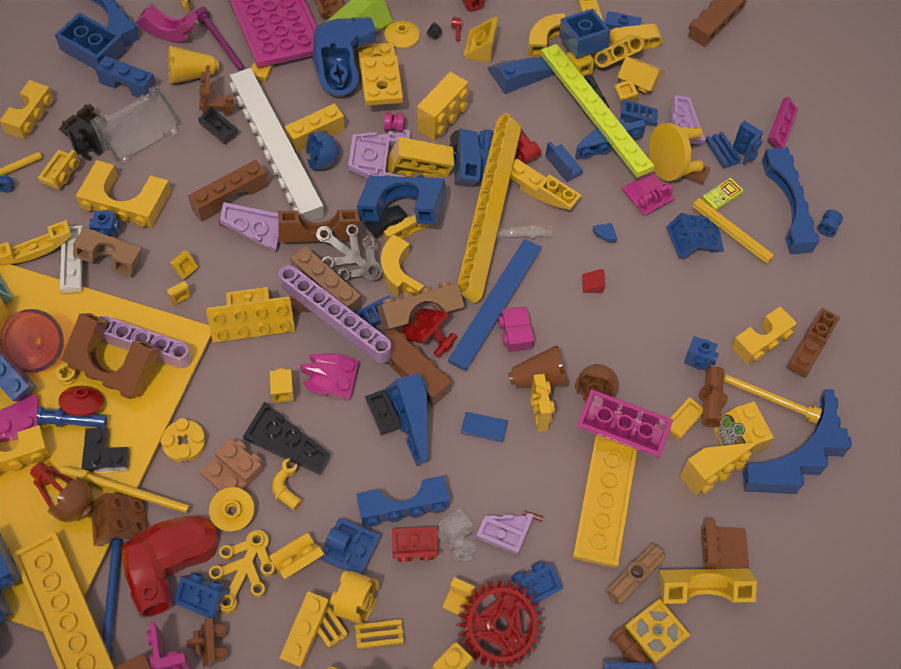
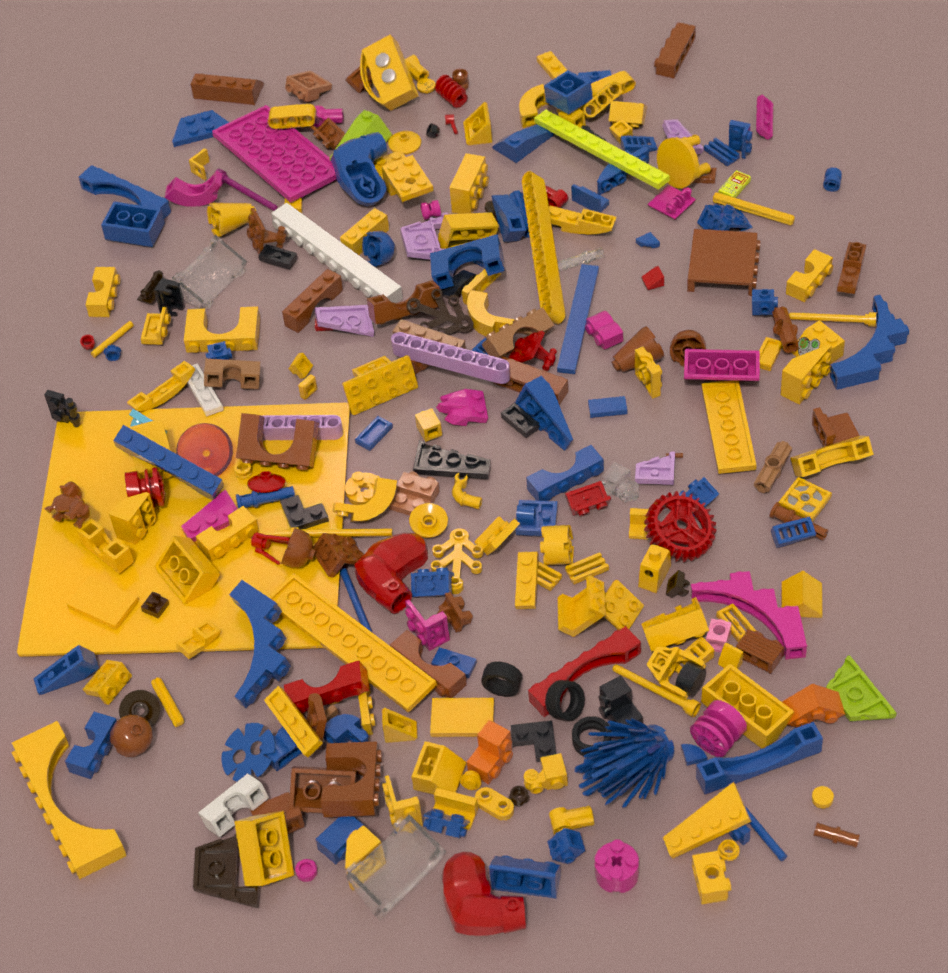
camera: 10 degrees left, 10 degrees down
(113, 72) = (191, 241): blue arch -> none
(177, 472) = (382, 497): none -> yellow arch
(224, 373) = (373, 433): none -> blue tile
(677, 284) = (723, 258): none -> dark orange panel
(780, 168) = (775, 151): blue arch -> none

